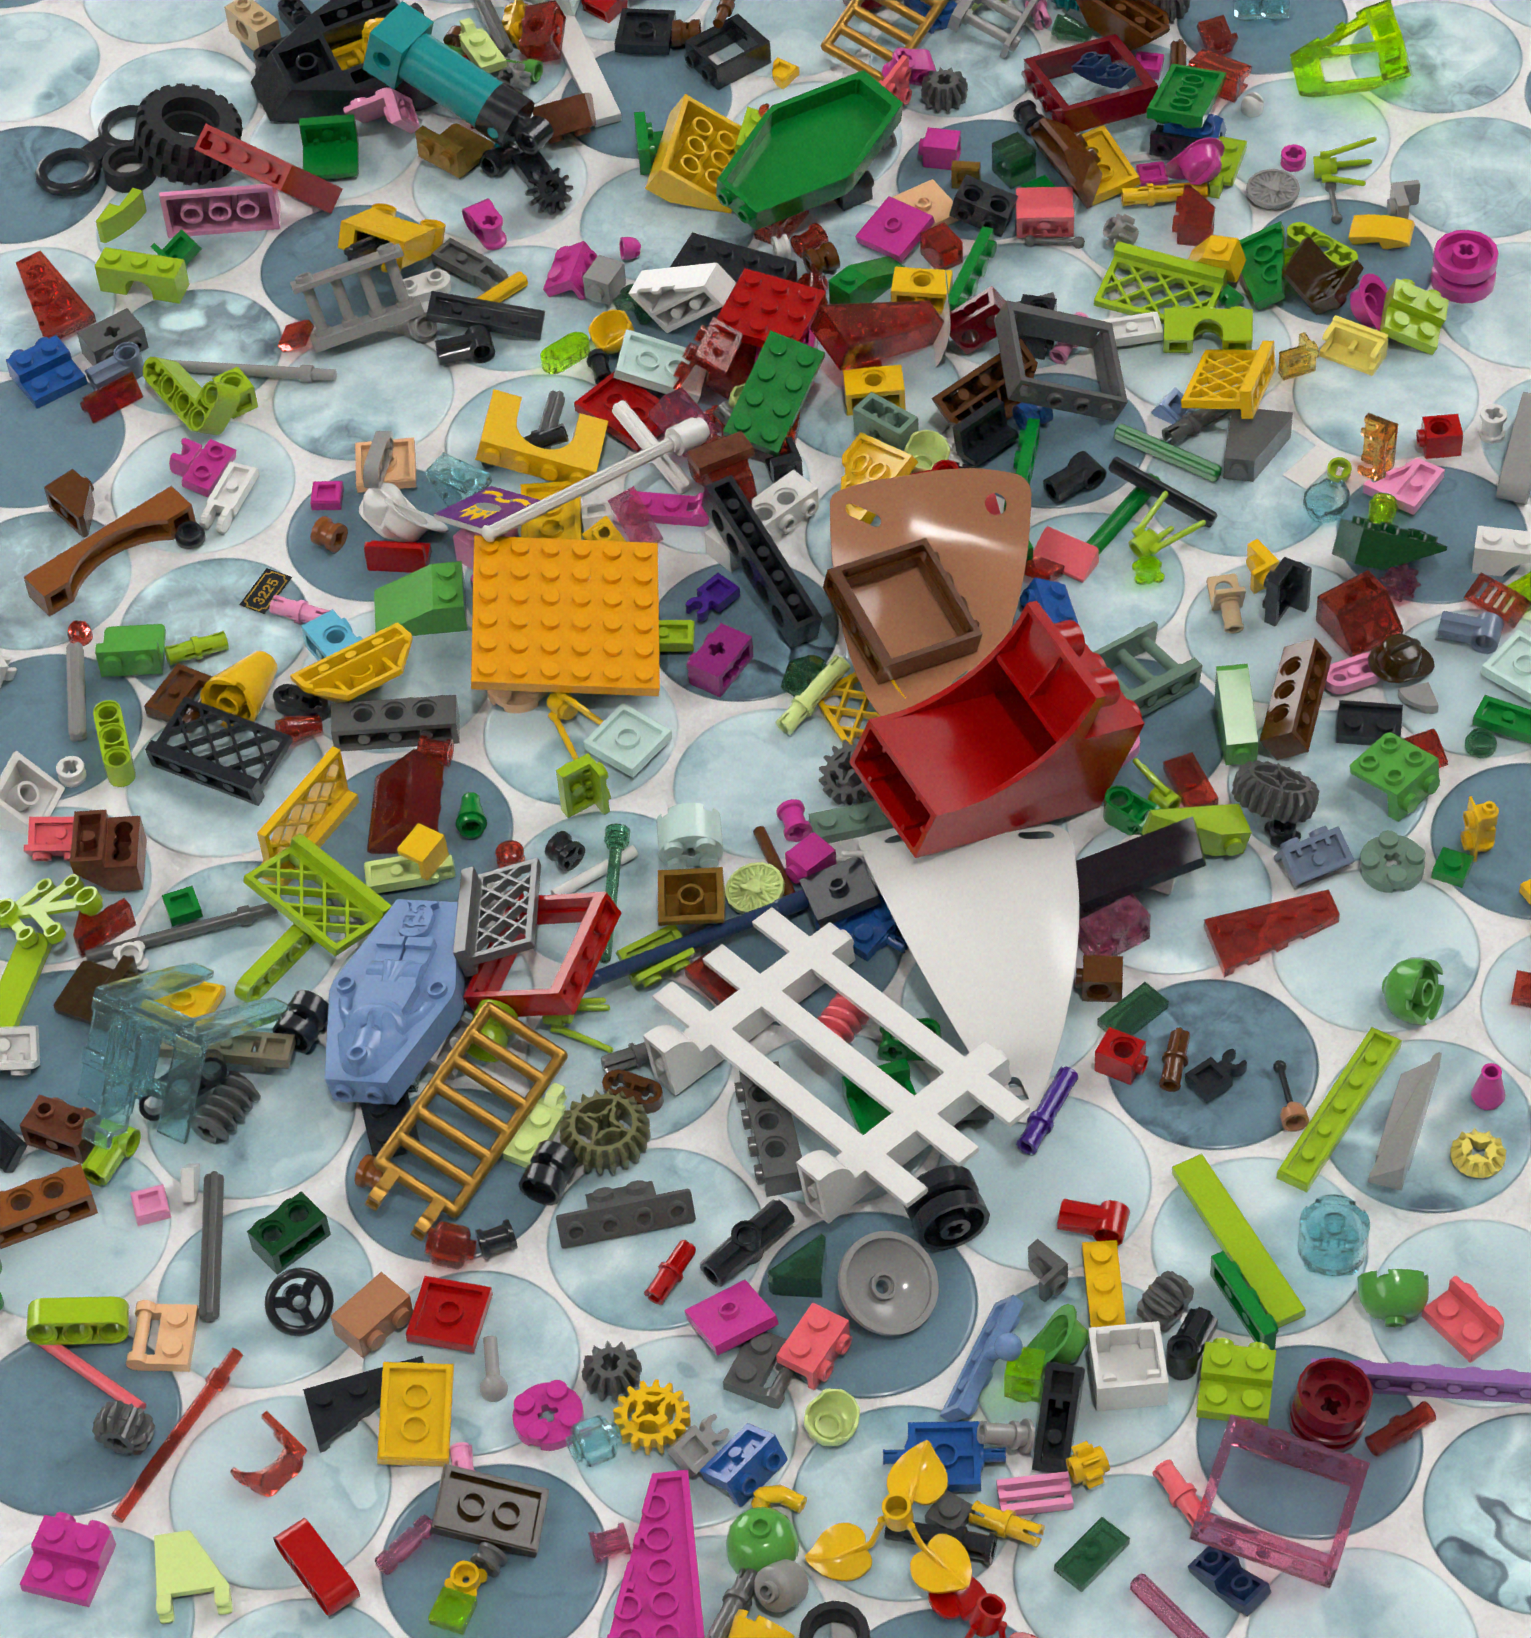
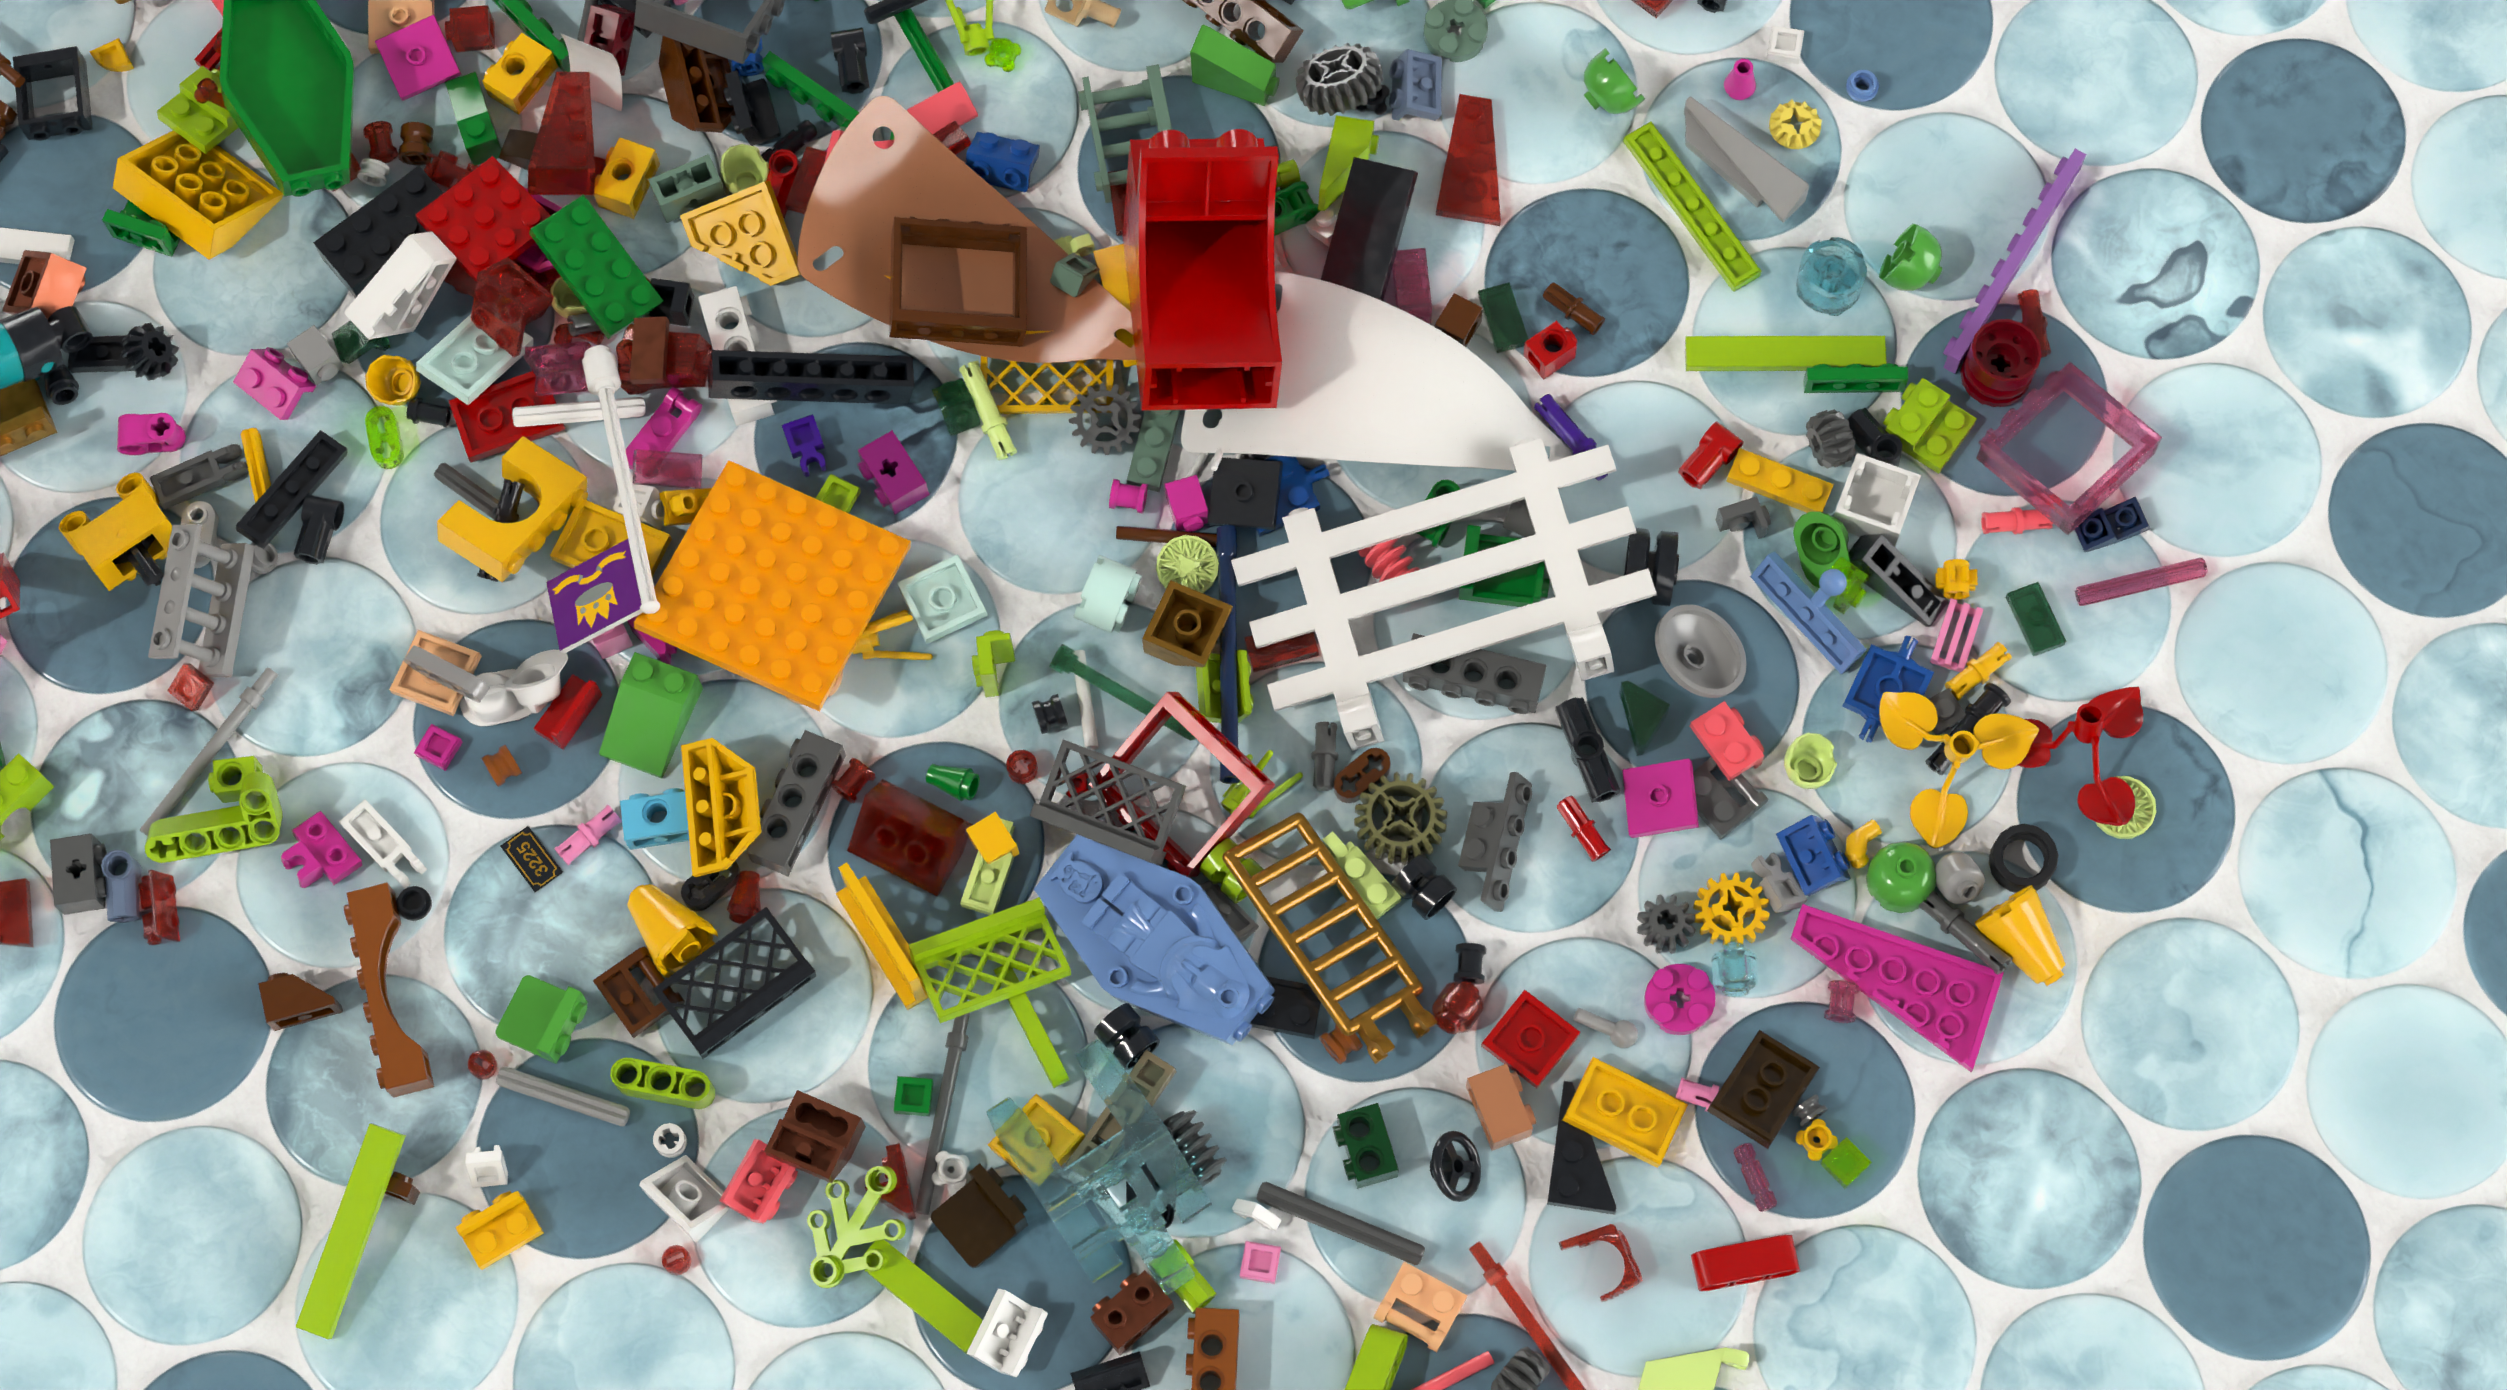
camera: 65 degrees left, 20 degrees up
(45, 371) = (76, 961): blue plate -> none
(196, 648) = (577, 954): lime pin -> none
(456, 479) = (504, 615): clear light blue wing -> none
(629, 248) = (275, 314): dark pink hinge -> none
(1013, 1435) = (1899, 622): light grey pin -> none
(1190, 781) = (1291, 142): clear red plate -> none
(1214, 1078) = (1610, 288): black plate -> none
(1294, 1115) = (1681, 244): nougat hinge -> none
(1465, 1319) = (1957, 219): coral bracket -> none

